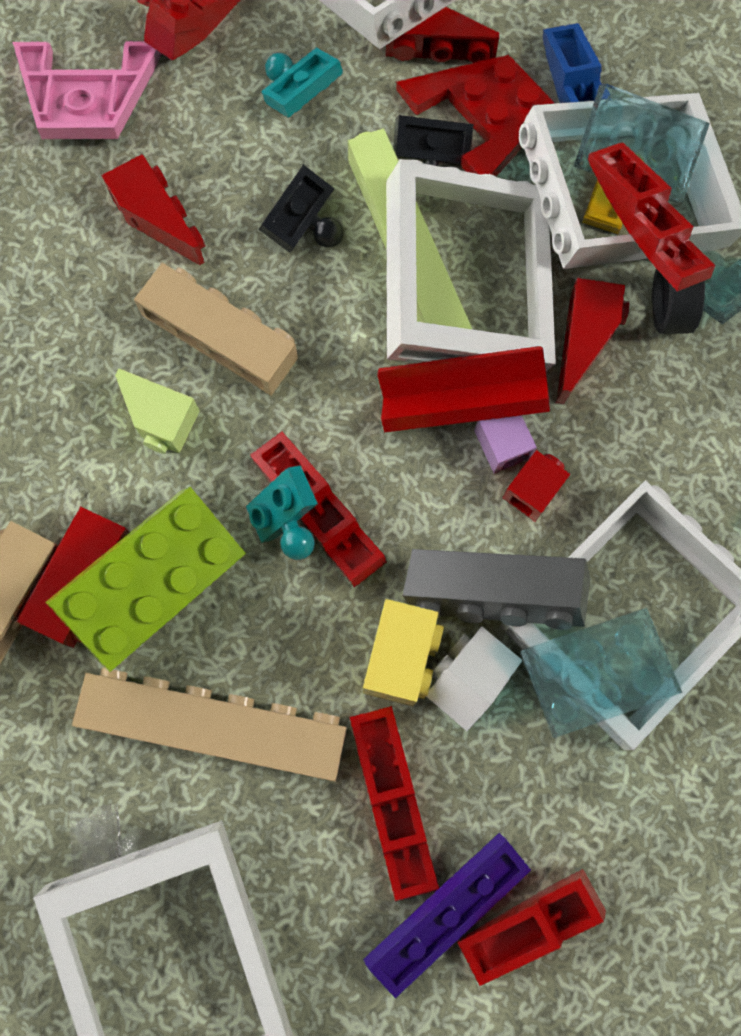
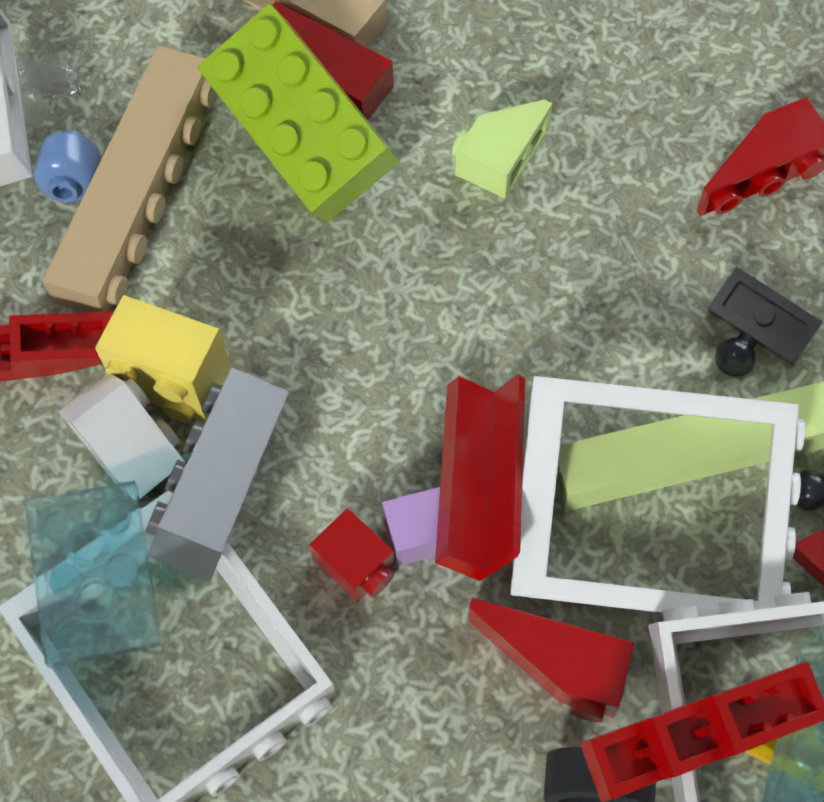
camera: 100 degrees right, 10 degrees down
(203, 792) = (66, 165): none -> medium blue head
(217, 328) = (601, 215): tan brick -> none
(280, 508) = (357, 257): teal plate -> none
(329, 520) = (364, 307): red slope -> none

